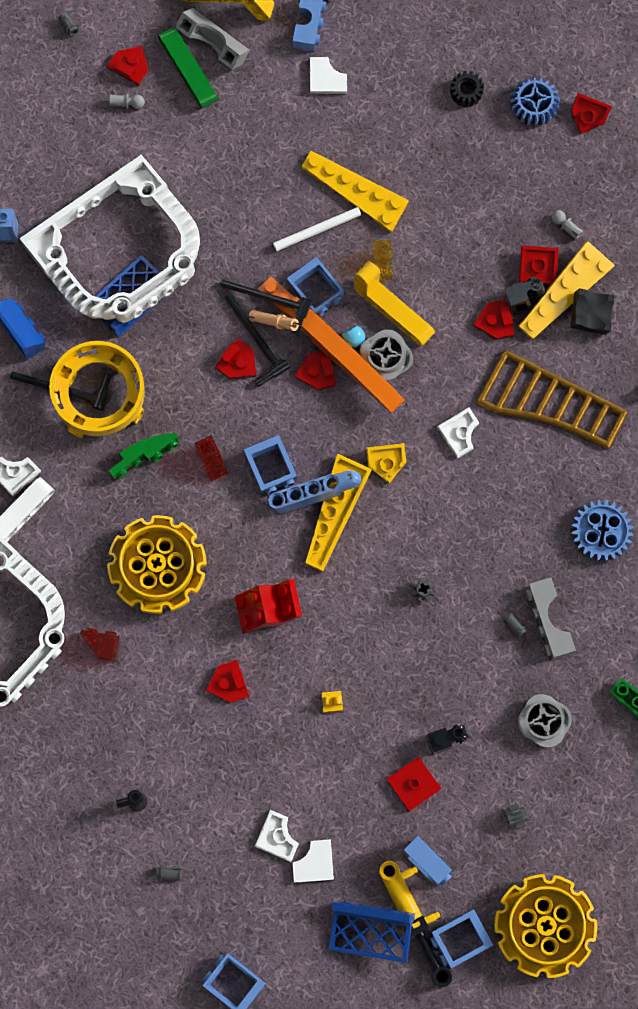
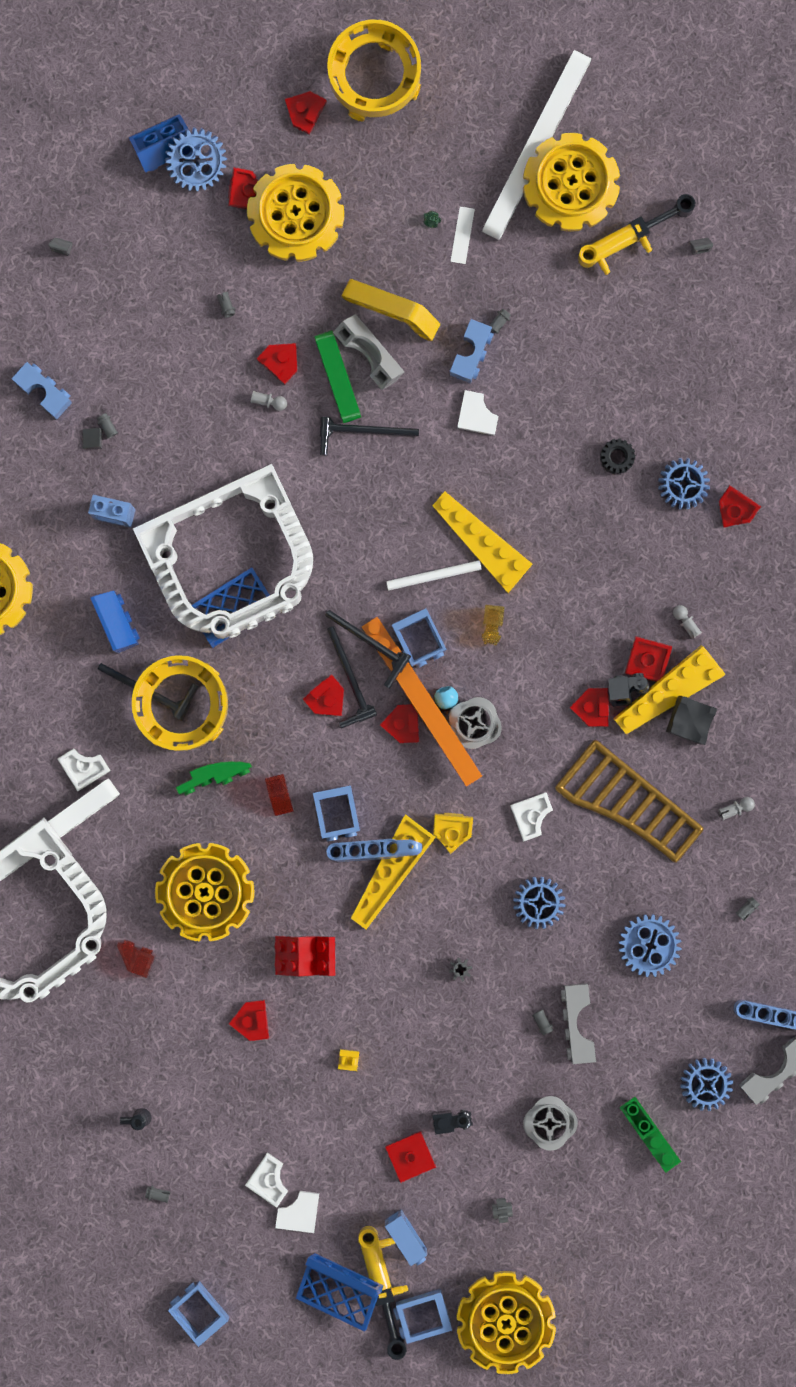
camera: 15 degrees right, 10 degrees up
(187, 114) = (327, 427): none -> black bar
(279, 321) = (374, 669): light nougat pin -> none
(368, 286) = (474, 650): yellow beam -> none
(477, 512) = (522, 900): none -> medium blue gear

